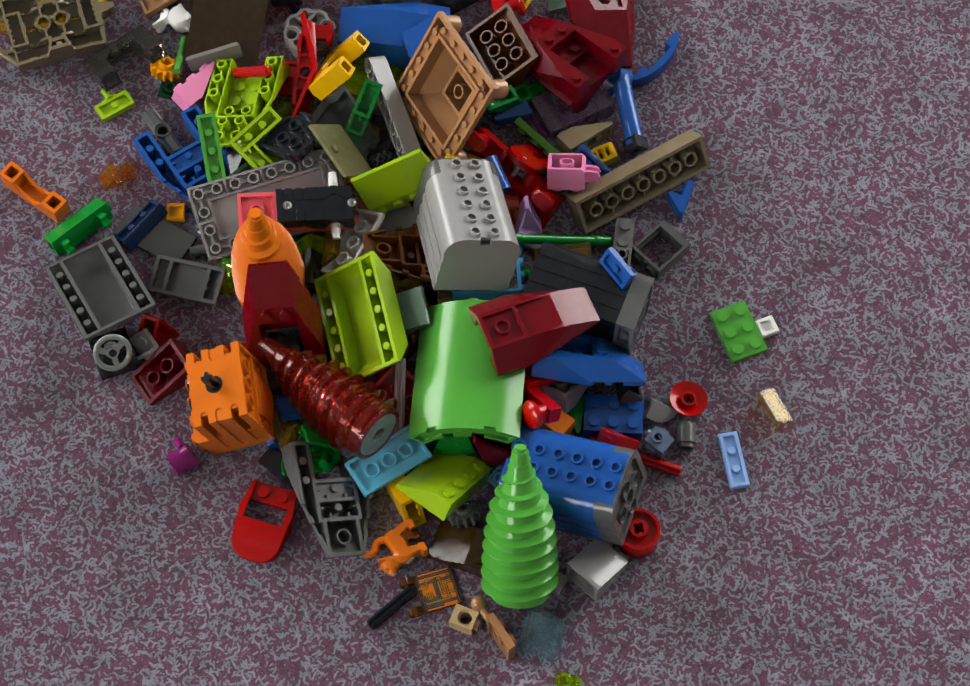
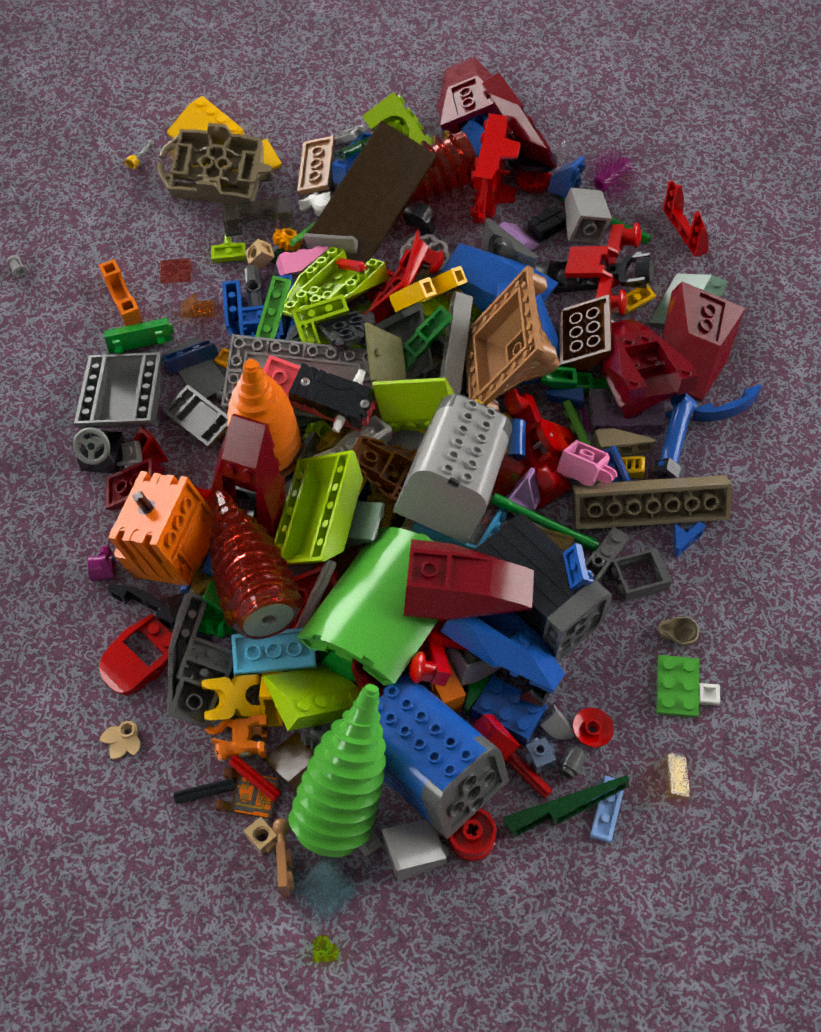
camera: 30 degrees right, 5 degrees down
(71, 146) = (175, 270): none -> clear red piece
(148, 95) = (259, 254): none -> tan brick
(216, 473) = (125, 593): none -> black slope
(291, 602) = (120, 741): none -> tan plate
(373, 517) = (231, 697): none -> yellow piece
(430, 575) = (254, 778): none -> red axle
(698, 476) = (563, 807): none -> dark green slope
(717, 283) = (680, 630): none -> dark tan hair

